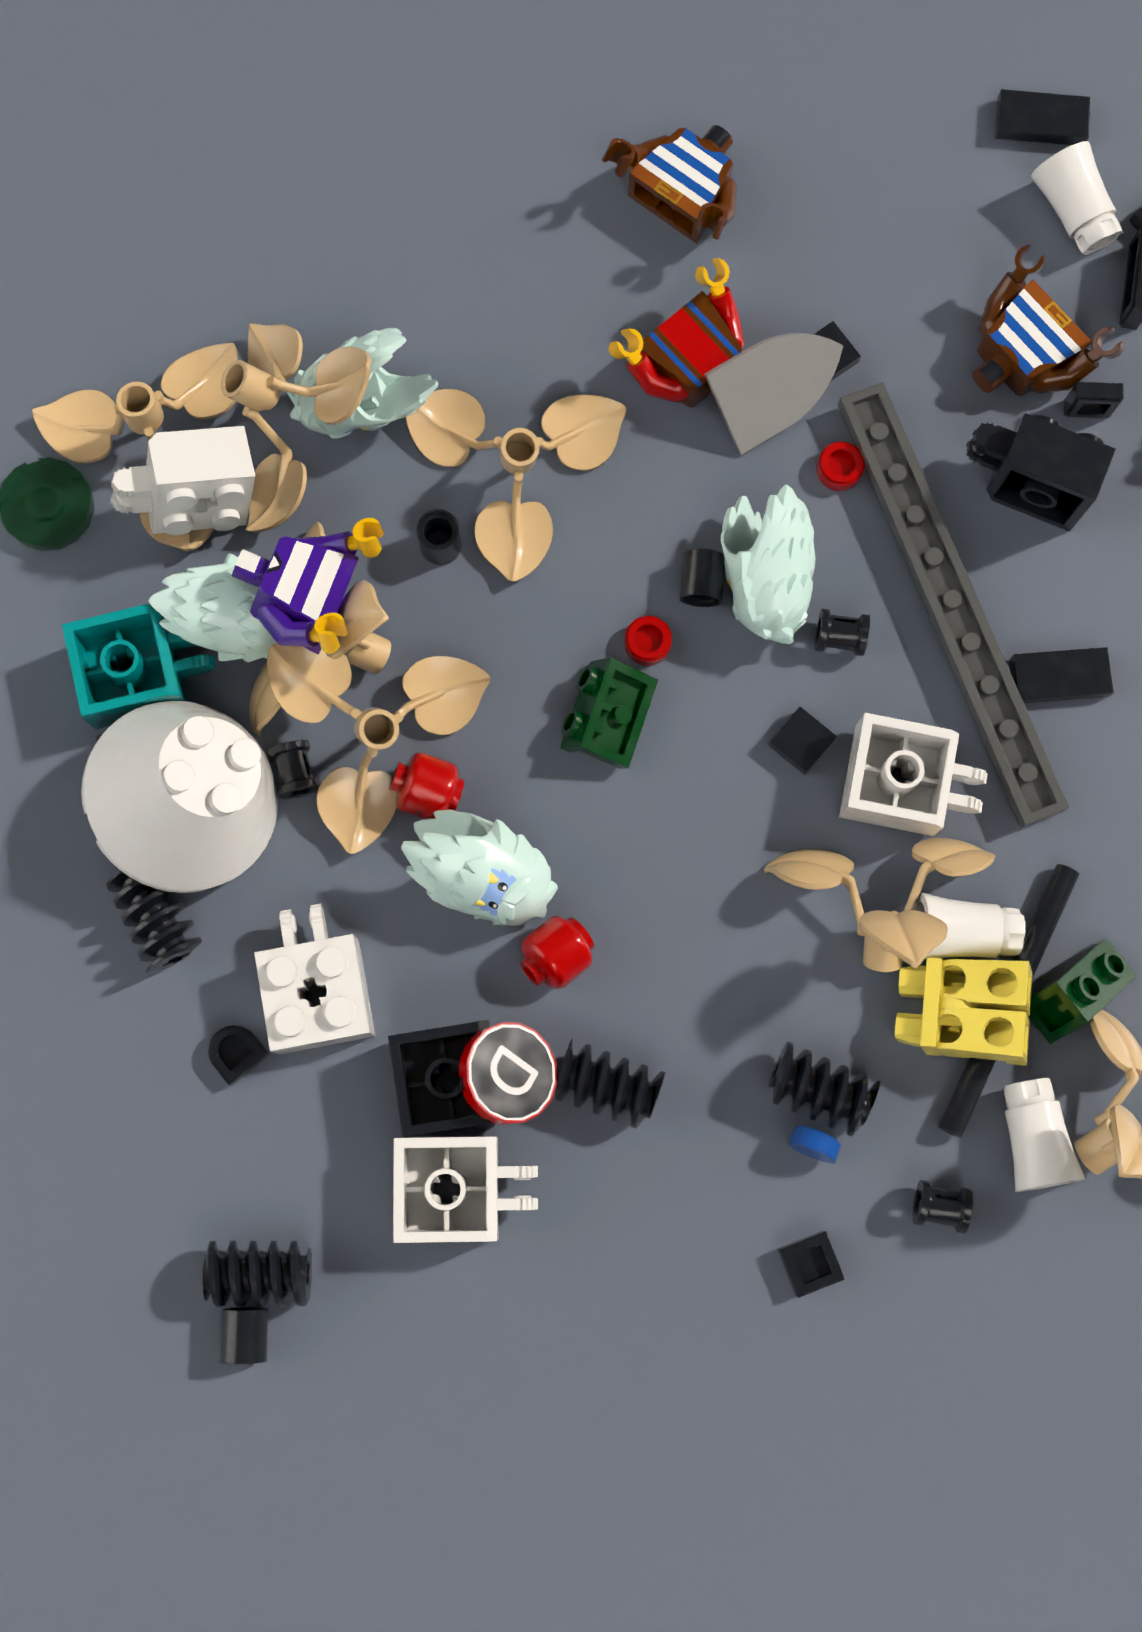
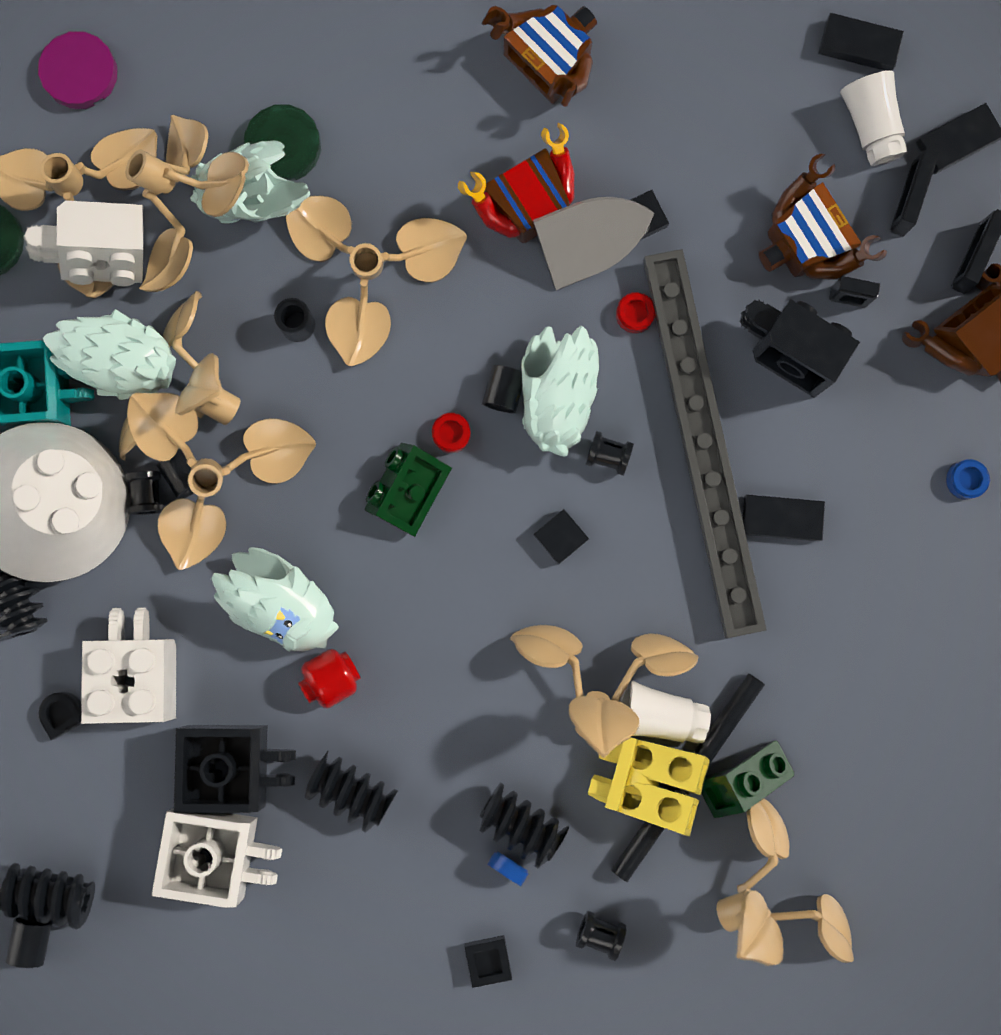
camera: 10 degrees right, 5 degrees up
(126, 290) = (77, 70): none -> magenta tile
(306, 585) = (167, 348): torso -> none
(334, 739) = (176, 474): none -> black beam
(392, 310) = (295, 131): none -> clear green tile
(426, 785) = (248, 525): red head -> none
(508, 1073) = (266, 775): tile -> none
(925, 759) = (655, 569): white hinge -> none
(1039, 1137) = (689, 896): white plant -> none

